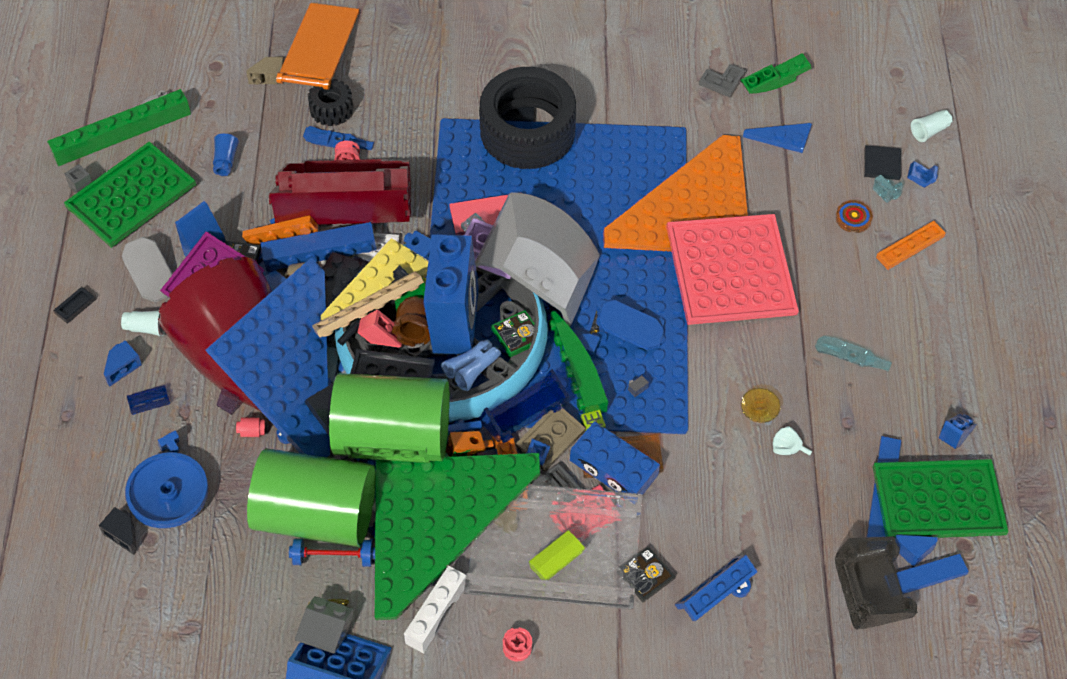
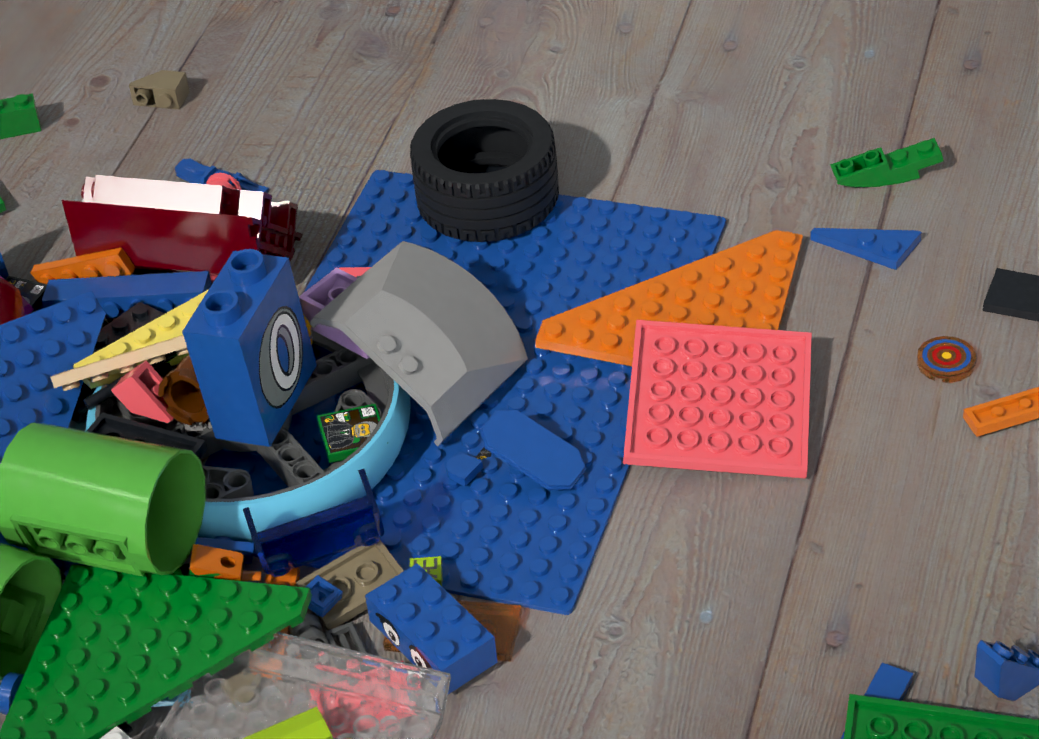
camera: 20 degrees right, 15 degrees down
(224, 152) = (58, 175): blue plant -> none
(318, 45) = (238, 65): orange flag -> none
(333, 112) = (227, 131): black tyre -> none
(470, 364) = (251, 456): medium blue piece -> none
(578, 367) = (432, 499): green slope -> none
(638, 386) = (514, 534): flat silver piece -> none
(725, 83) = (804, 169): dark grey plate -> none
(760, 398) = (697, 589): clear yellow dish -> none
(788, 442) = (724, 648): light aqua piece -> none
(843, 349) = (863, 536): clear light blue piece -> none
(886, 190) = (1009, 329): clear light blue bracket -> none

